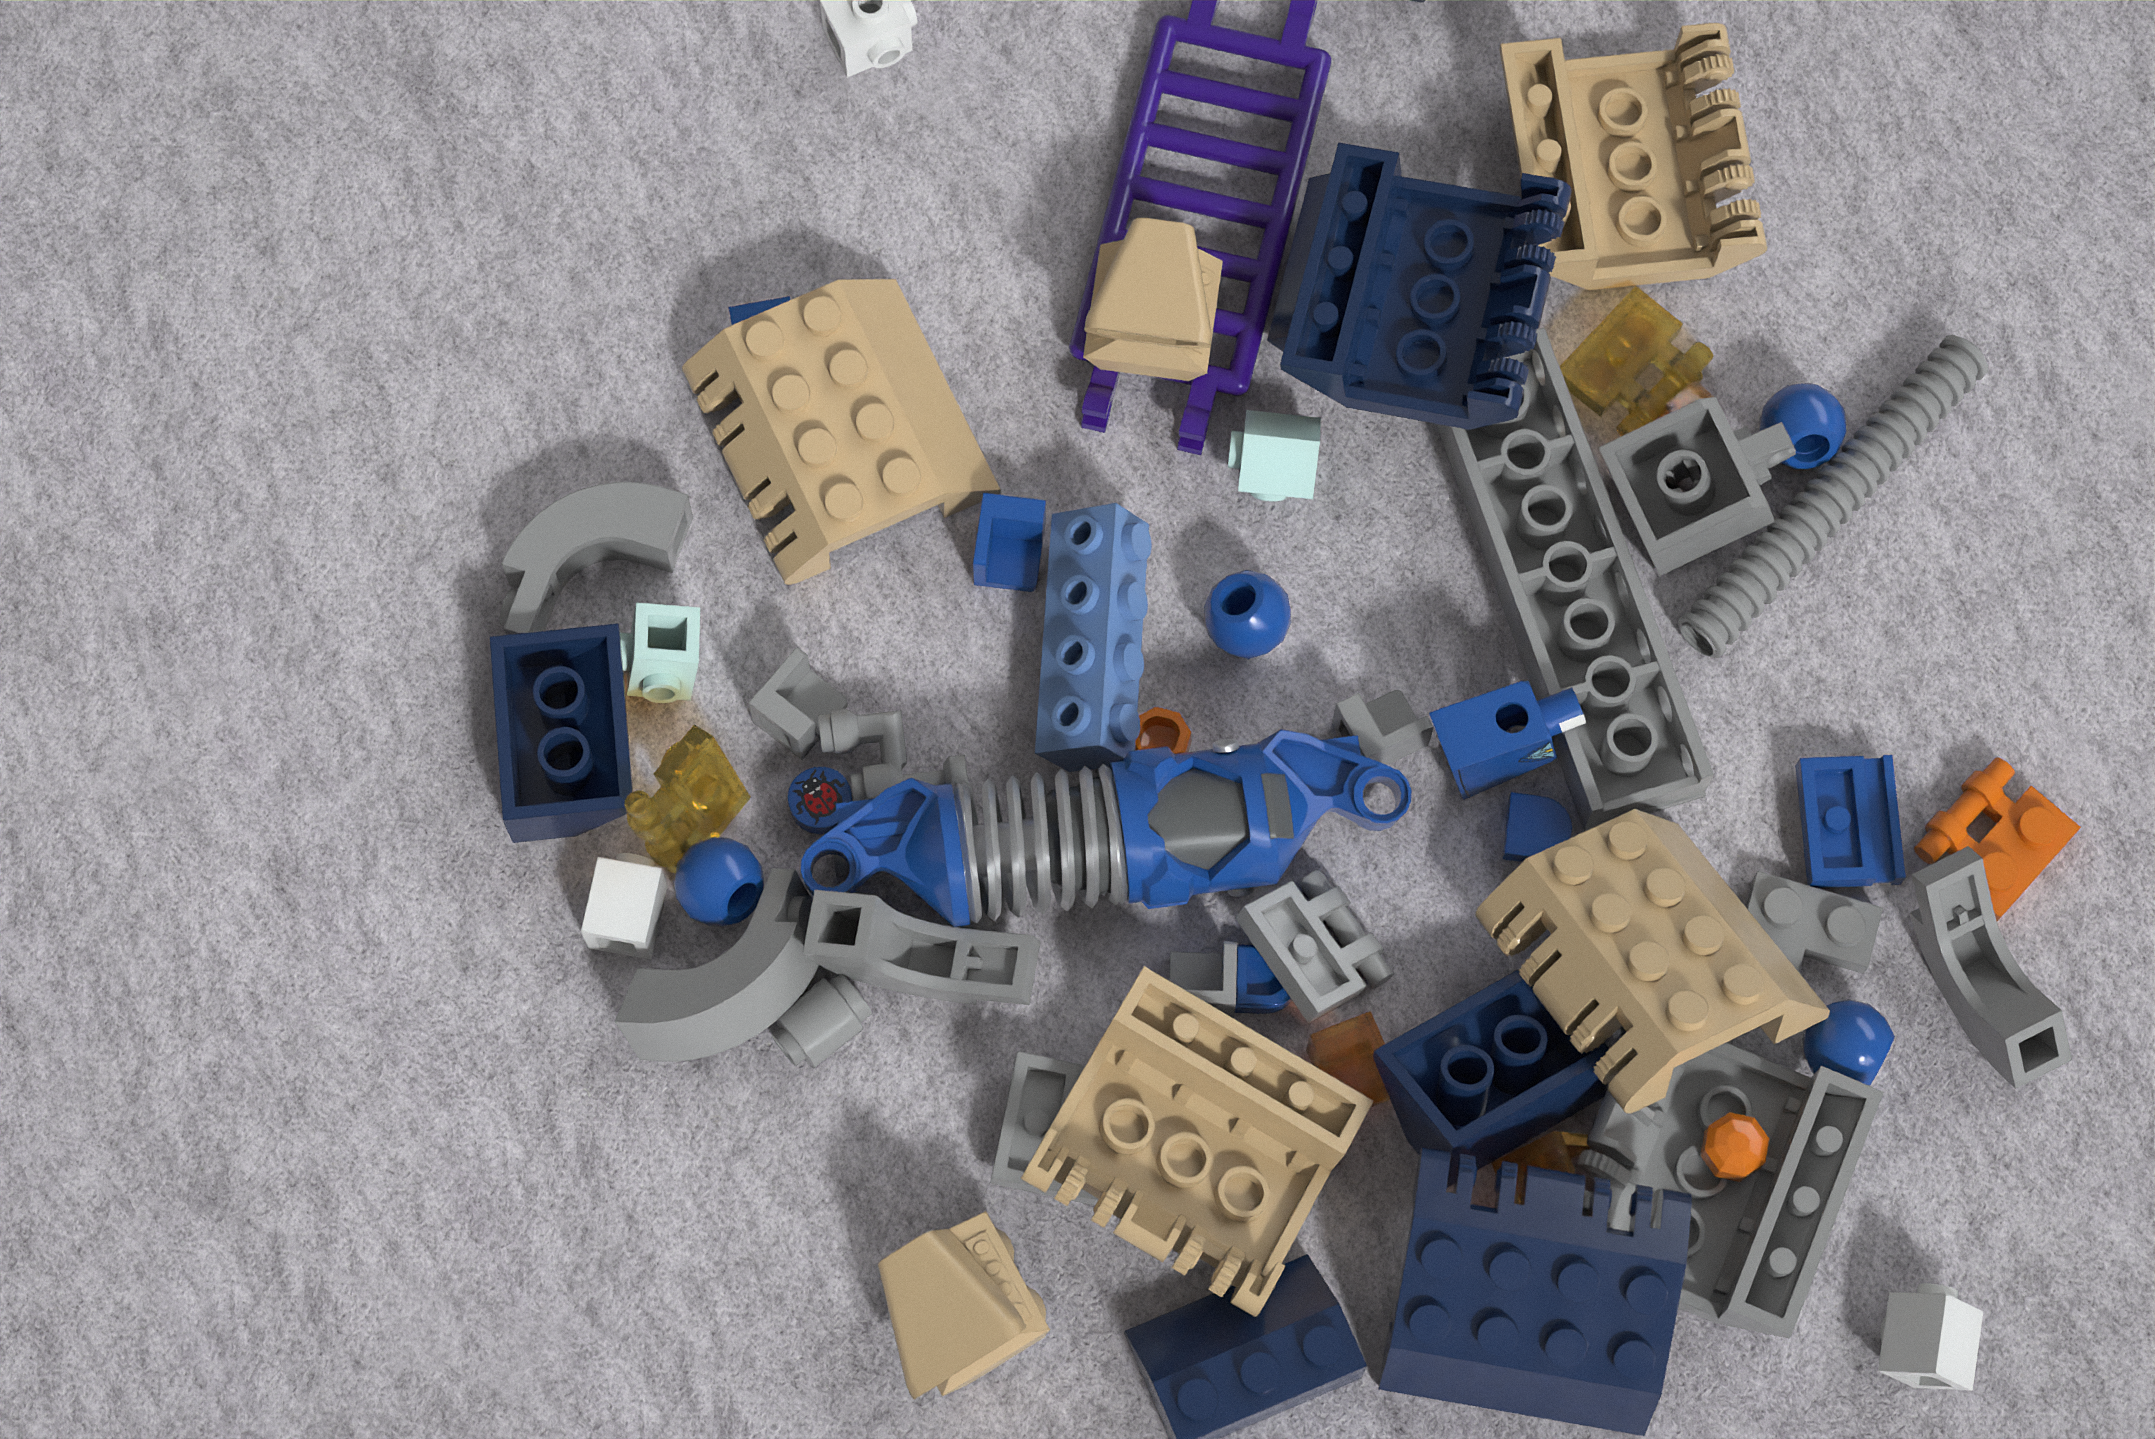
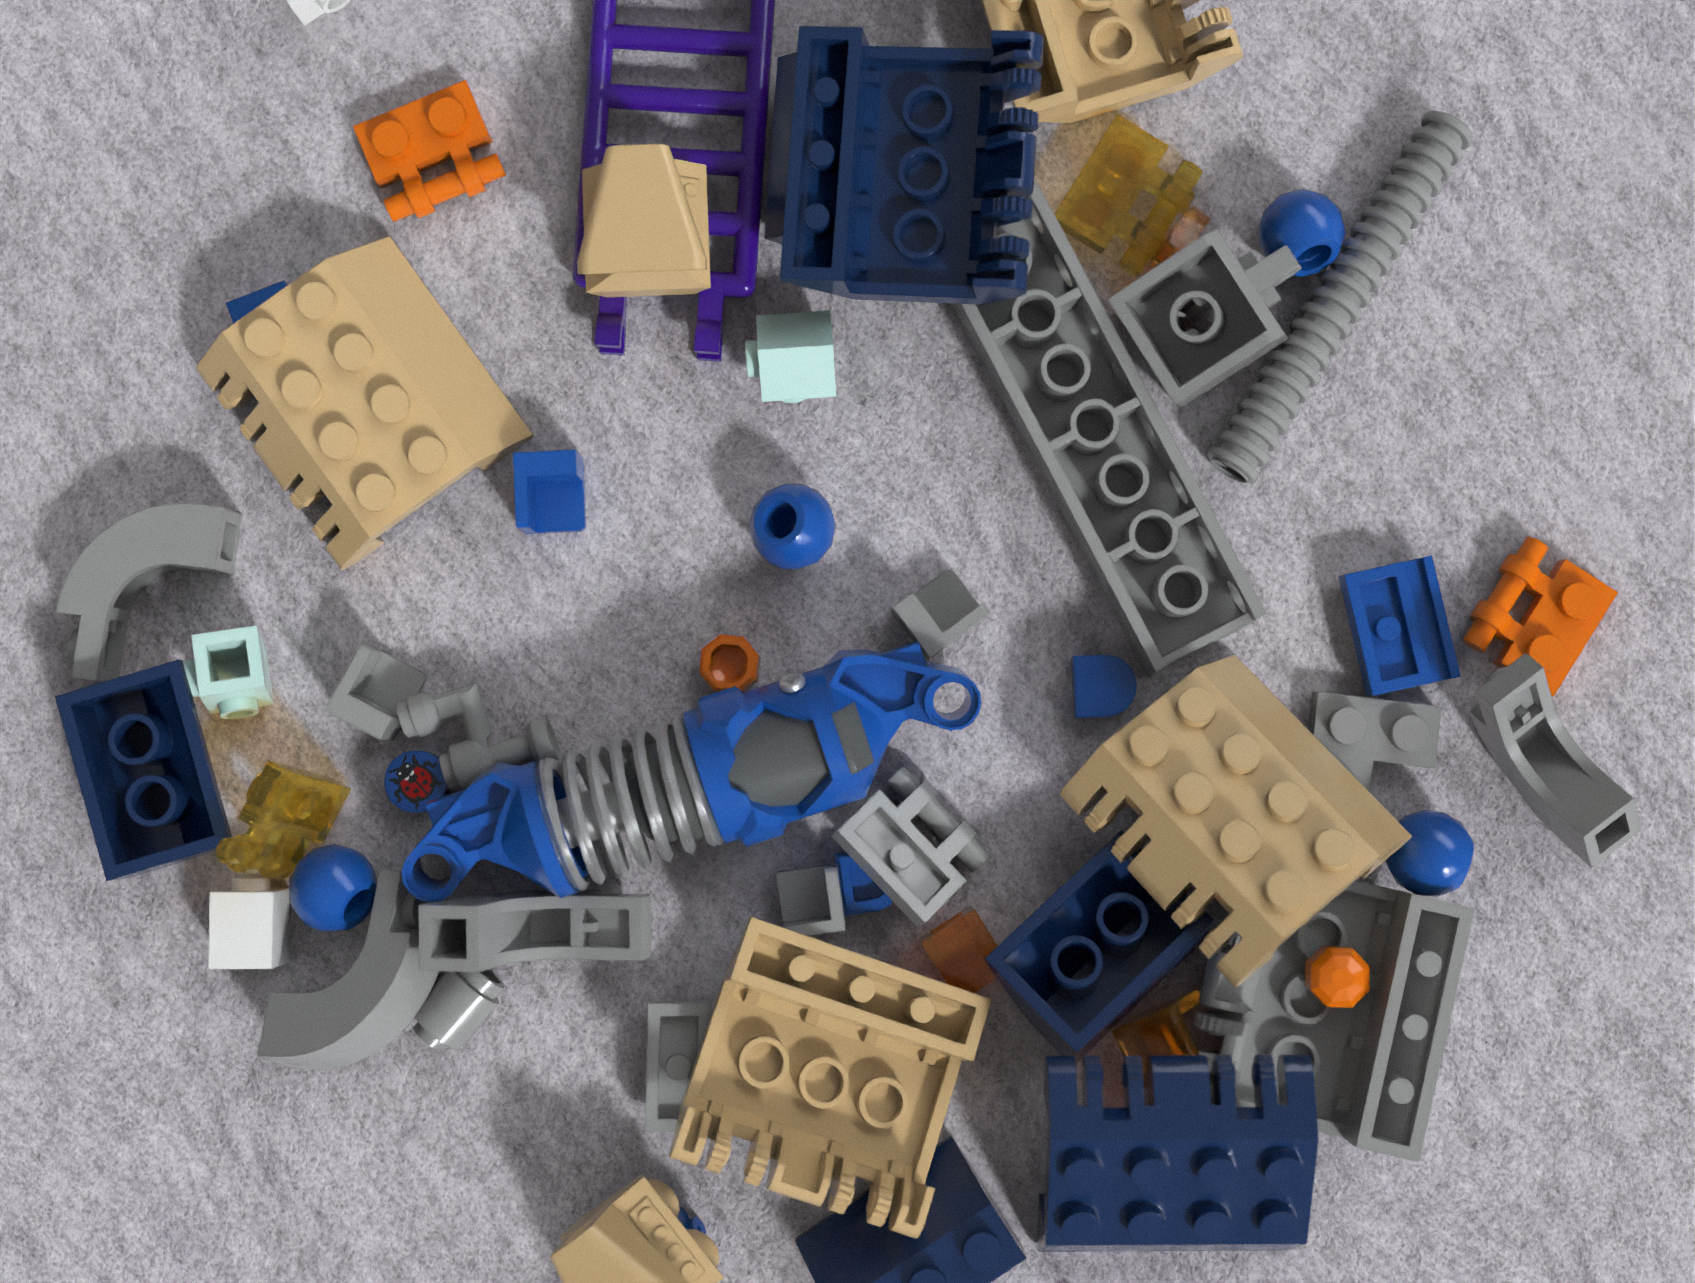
camera: 10 degrees left, 15 degrees up
(947, 195) = (423, 136): none -> orange plate
(1092, 637) = (646, 577): medium blue brick -> none
(1478, 737) = (1036, 627): blue torso -> none
(1930, 1338) = (1542, 1123): white brick -> none

